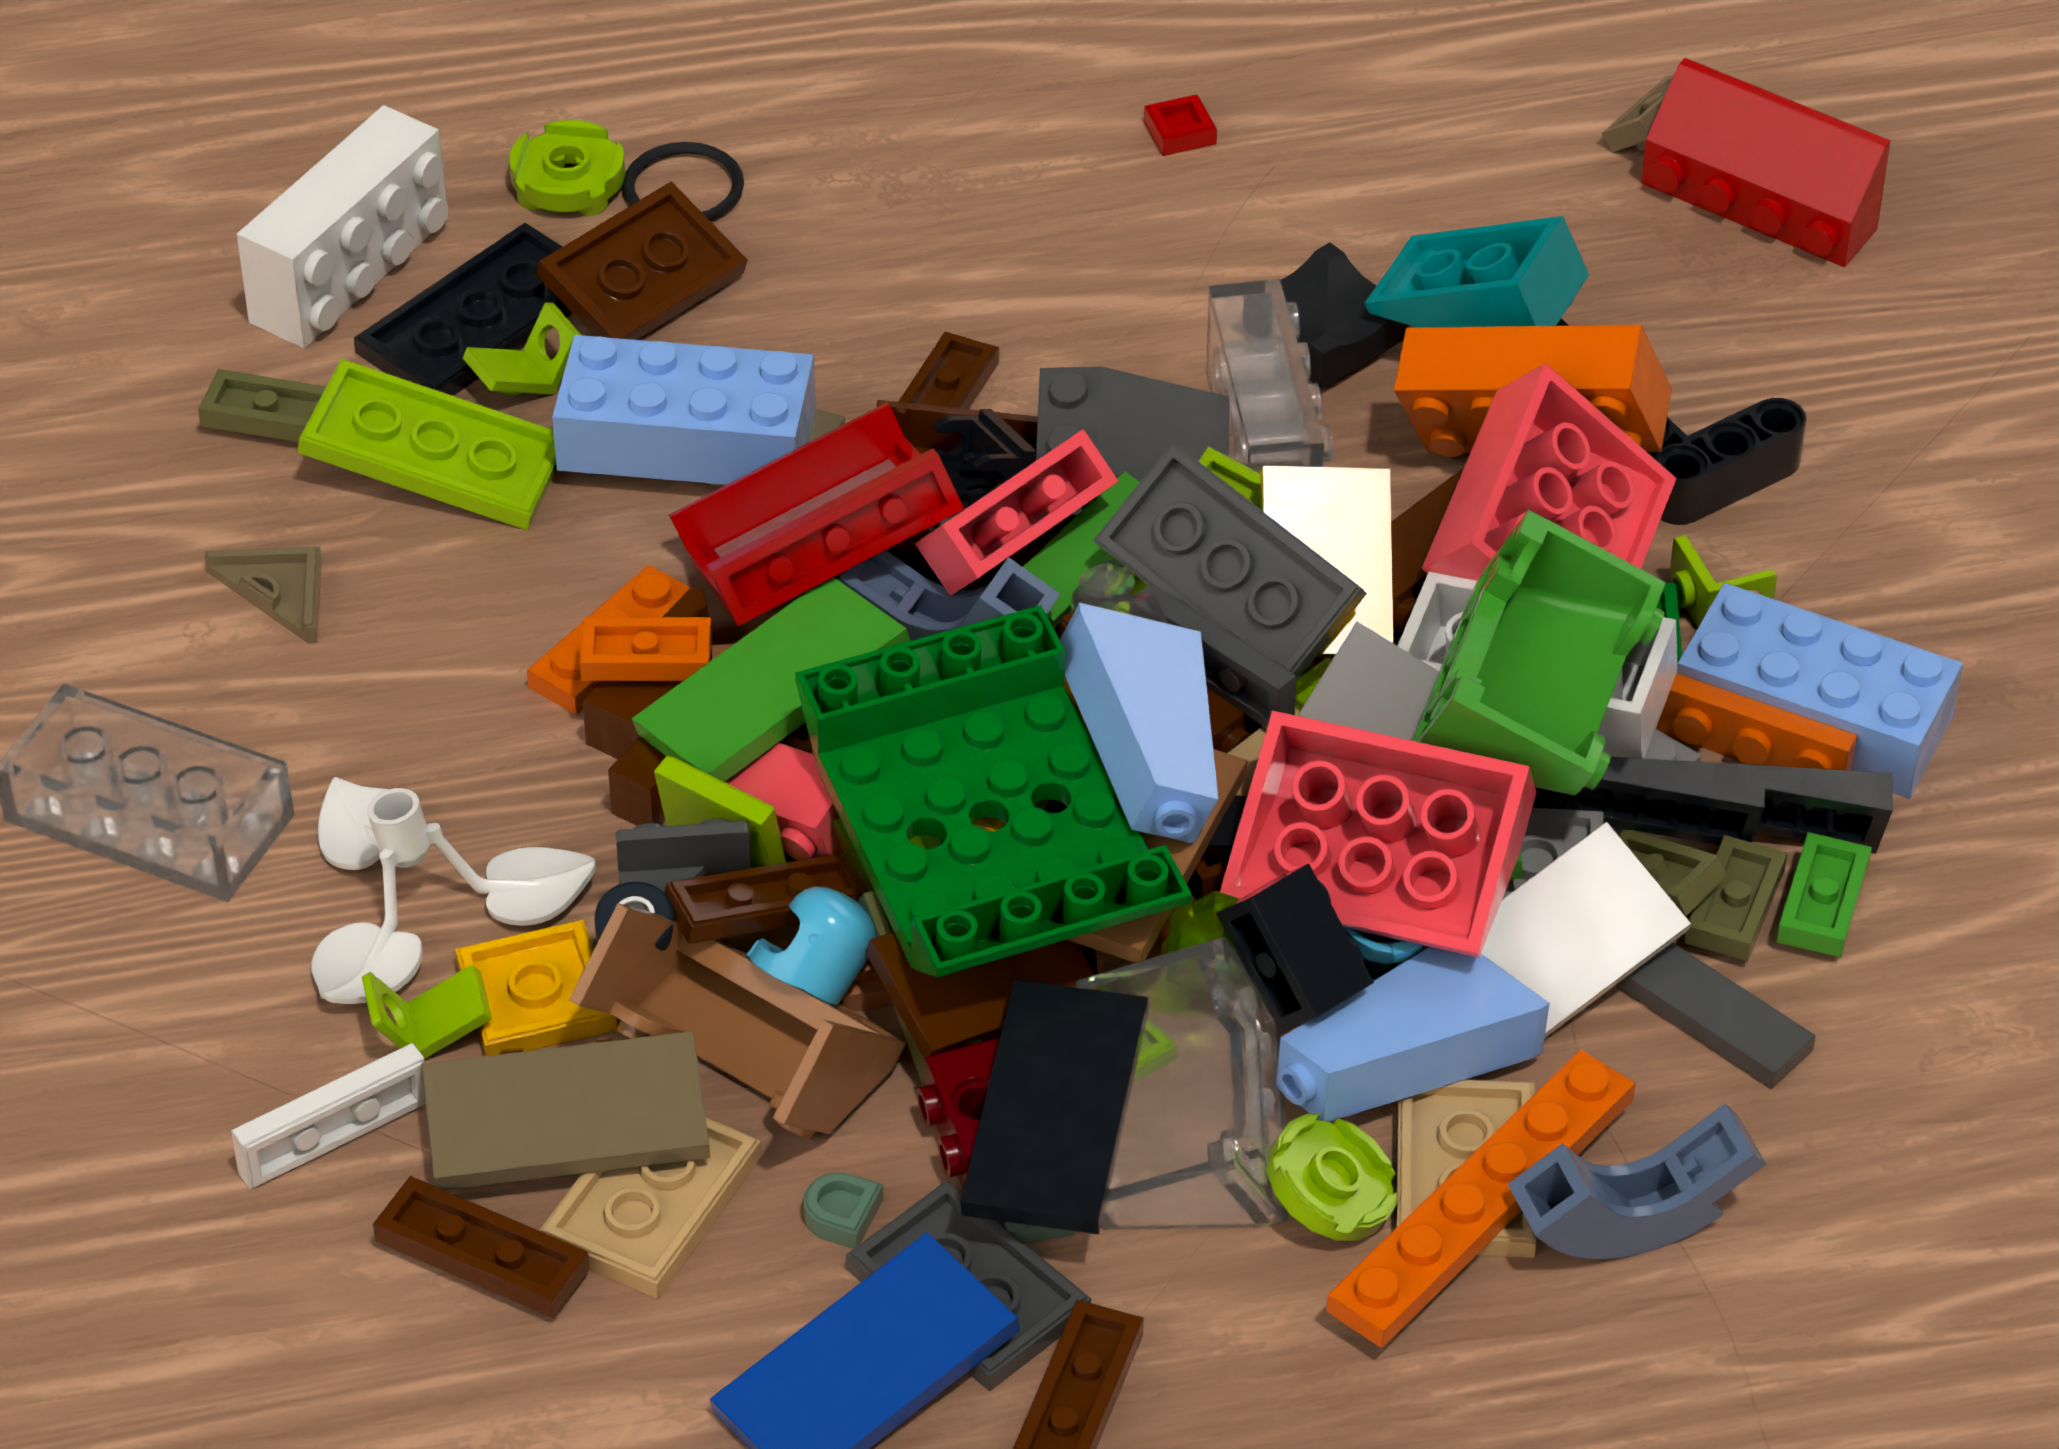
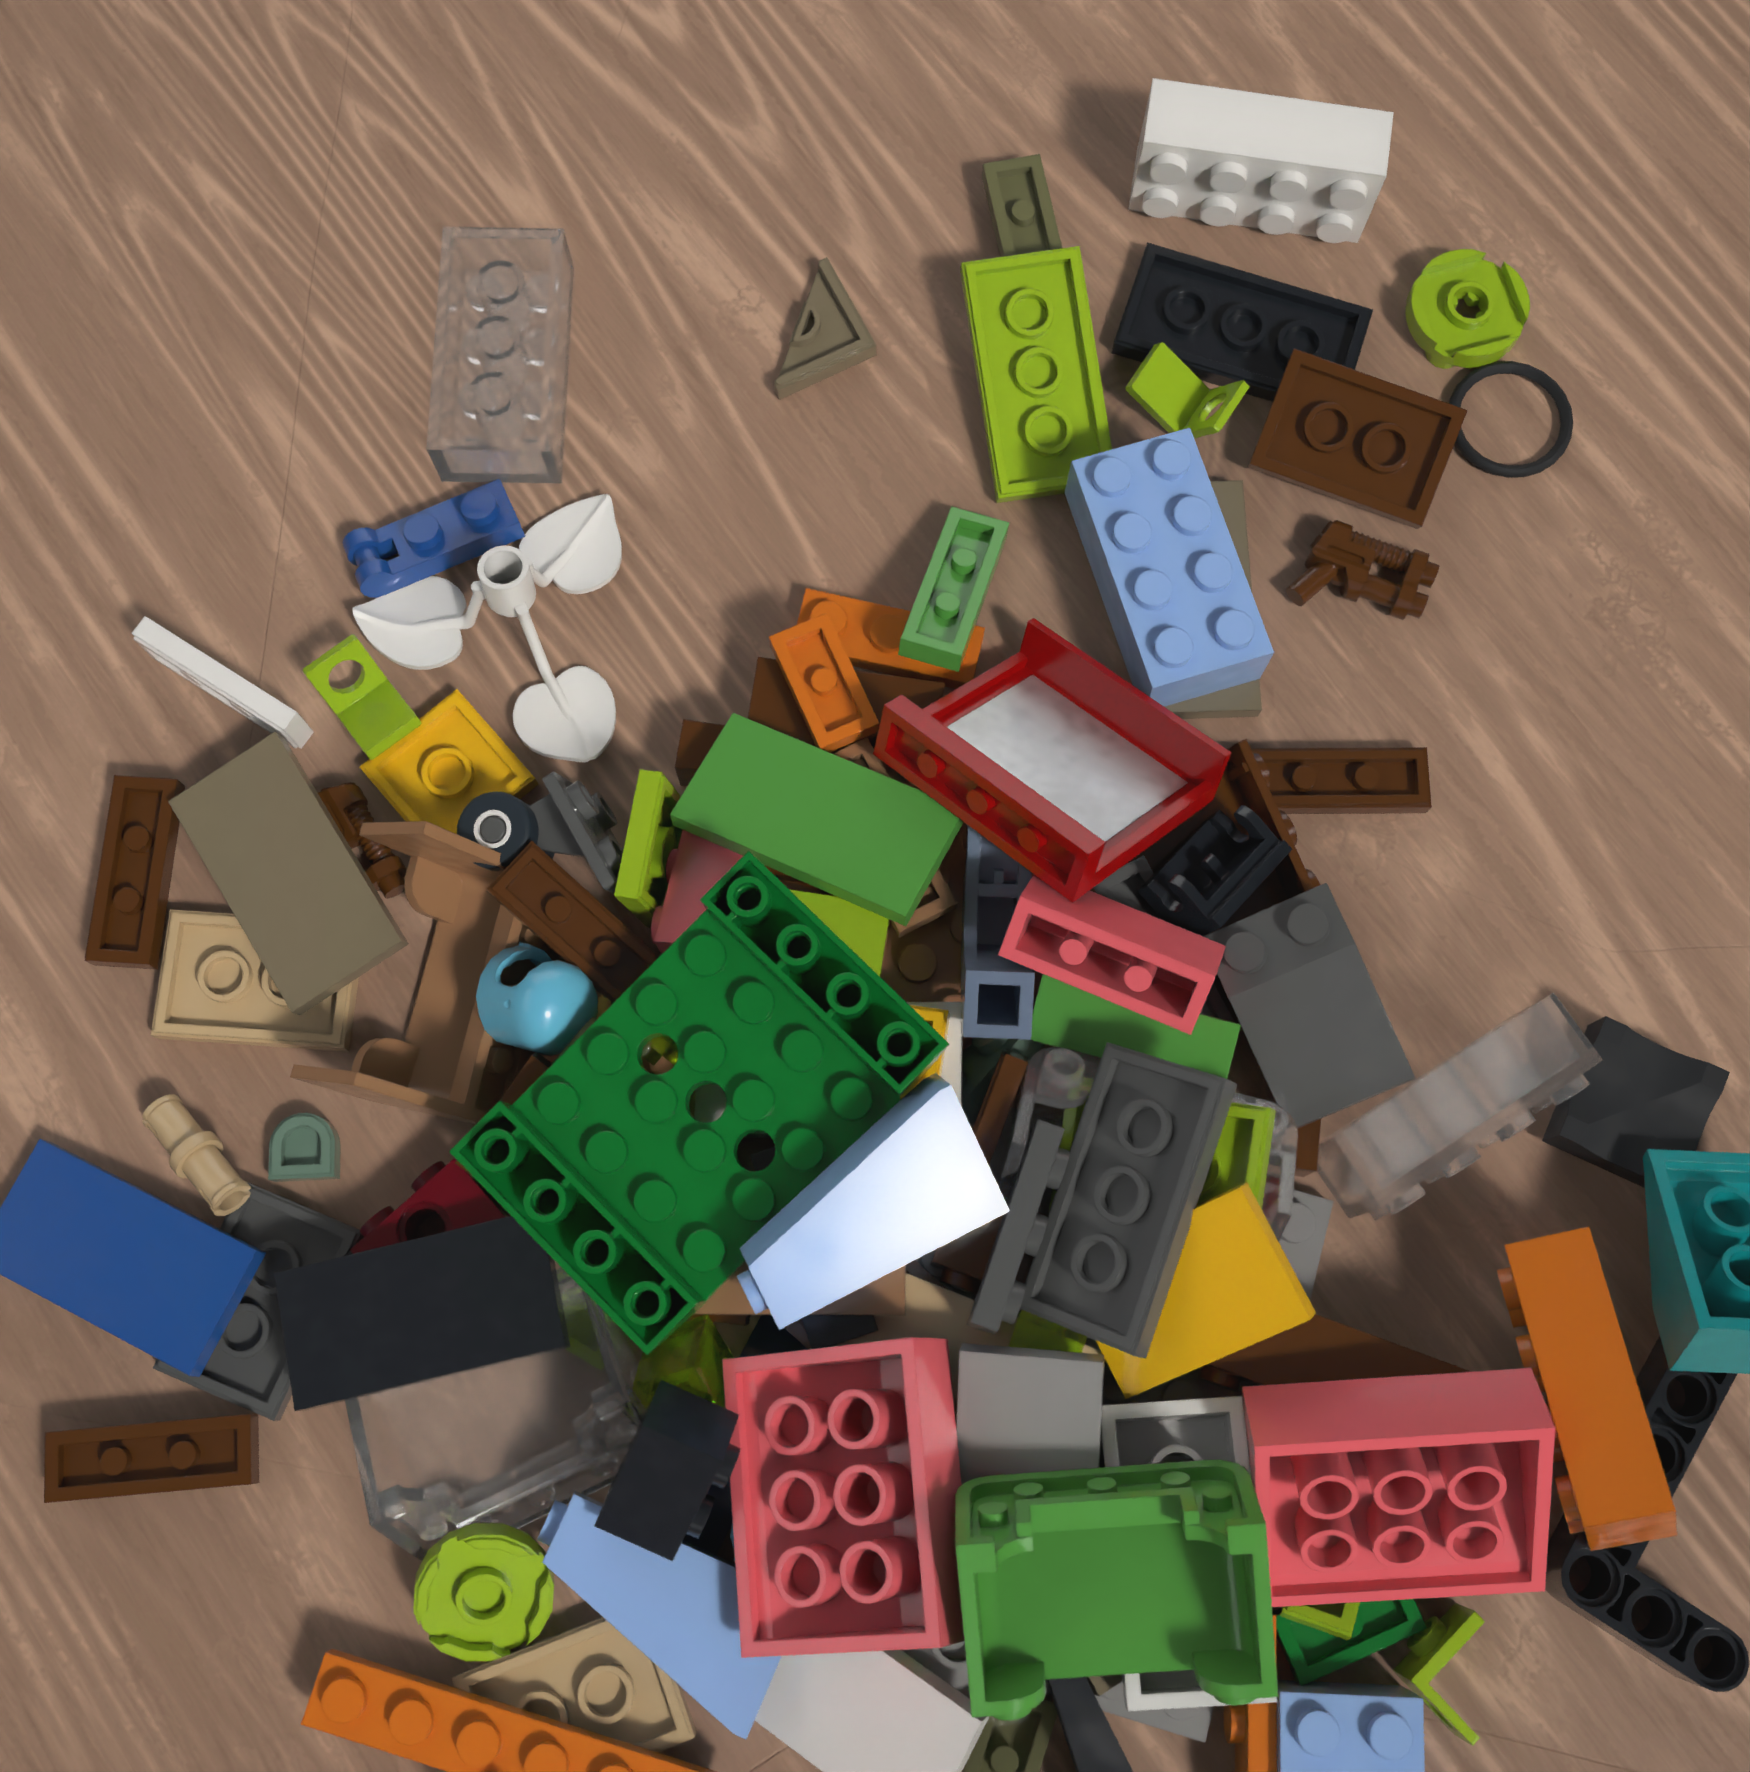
camera: 65 degrees right, 30 degrees up
(287, 918) = (432, 539): none -> blue plate
(605, 557) = (953, 589): none -> bright green plate
(748, 317) = (1345, 561): none -> reddish brown piece
(801, 1273) = (196, 1155): none -> tan pin

